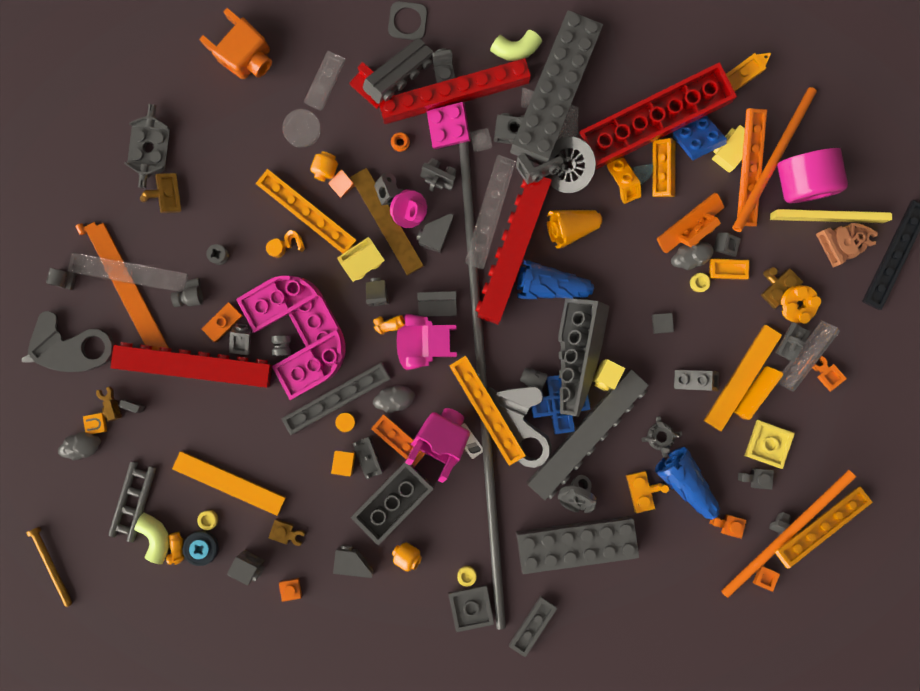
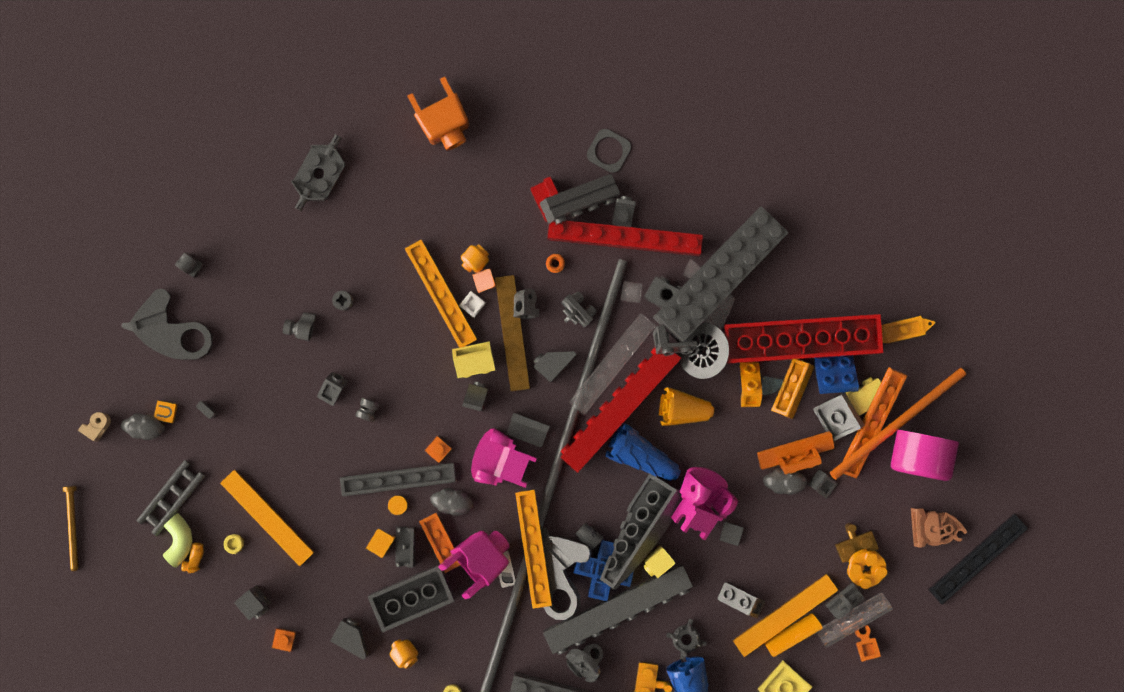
camera: 25 degrees right, 0 degrees up
(35, 463) = (96, 428): none -> tan leg
(111, 407) = (187, 402): pearl gold plate -> none
(127, 272) = (253, 283): clear tile -> none
(128, 292) = (244, 298): orange piece -> none
(166, 192) = (318, 223): pearl gold plate -> none
(191, 366) = (277, 395): red brick -> none
(207, 544) = (224, 566): black wheel -> none
(222, 322) = (321, 365): orange plate -> none
(277, 247) = (401, 316): light orange leg -> none
(283, 532) = (299, 583): pearl gold plate -> none
(301, 128) = (468, 213): clear tile -> none
(314, 323) = (405, 402): dark pink plate -> none
(324, 80) = (508, 177): clear tile -> none
(339, 210) = (472, 304): none -> white tile
(362, 356) = (438, 449): none -> orange plate
(389, 325) = (479, 432): light orange arm -> none
(408, 208) = (537, 330): dark pink tile -> none
(448, 125) = (606, 267): dark pink plate -> none
(516, 50) = (700, 222): yellowish green cylinder -> none
(620, 295) = (700, 492): none -> dark pink piece
(700, 282) = (782, 509): light yellow tile -> none
(718, 174) = (838, 416): none -> plate
(728, 269) = (814, 508): light orange tile -> none
(831, 216) = (930, 497): light yellow tile -> none

